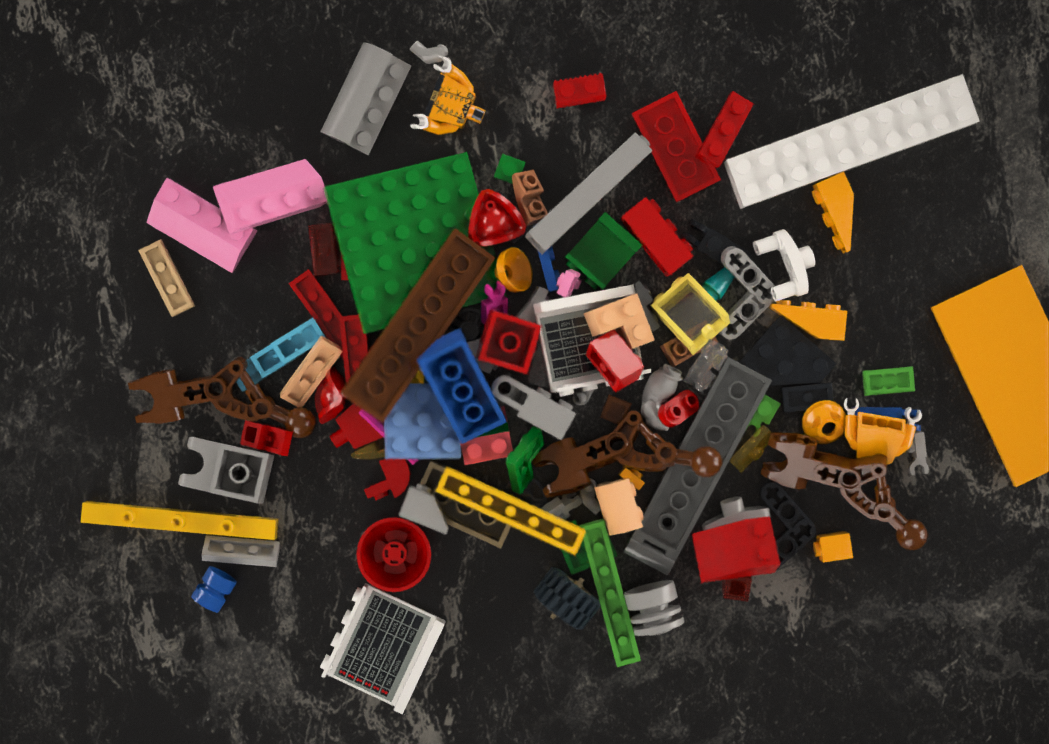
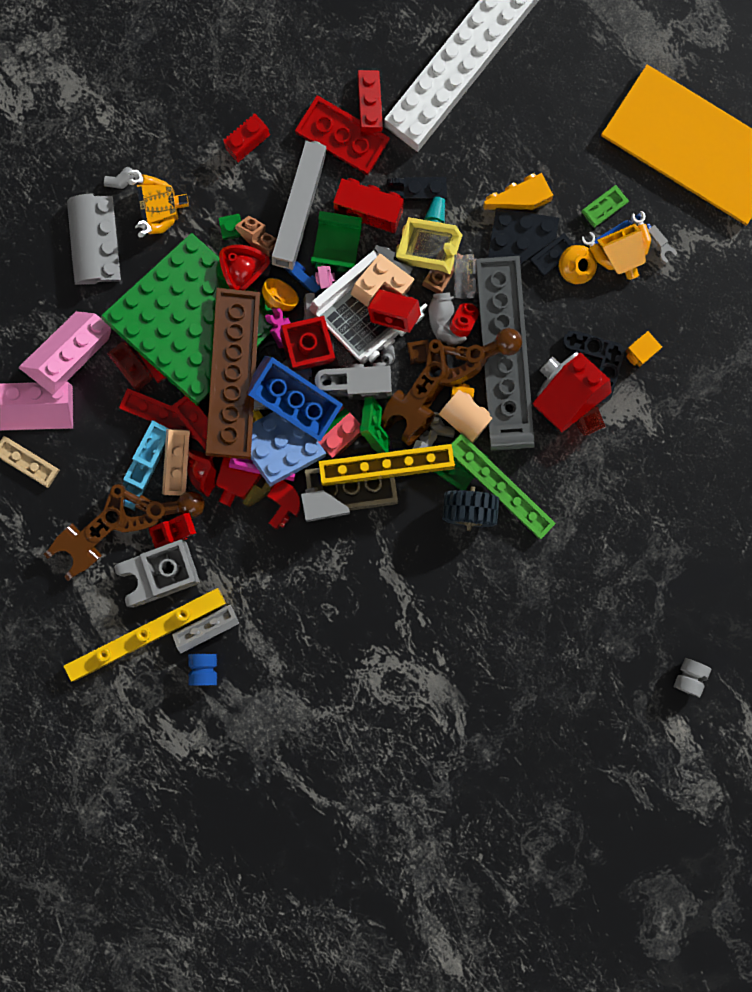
camera: 30 degrees left, 5 degrees down
(383, 563) = (312, 543): red piece -> none
(383, 646) = (356, 635): panel -> none
(655, 613) = (539, 476): light grey wheel -> none
(751, 450) = (538, 316): clear yellow plate -> none
(753, 296) = (467, 206): light grey beam -> none
(764, 412) = (529, 287): bright green plate -> none
(795, 261) = (481, 162): white connector -> none
(807, 464) = (583, 300): reddish brown piece -> none
(837, 202) = (484, 102): light orange slope -> none

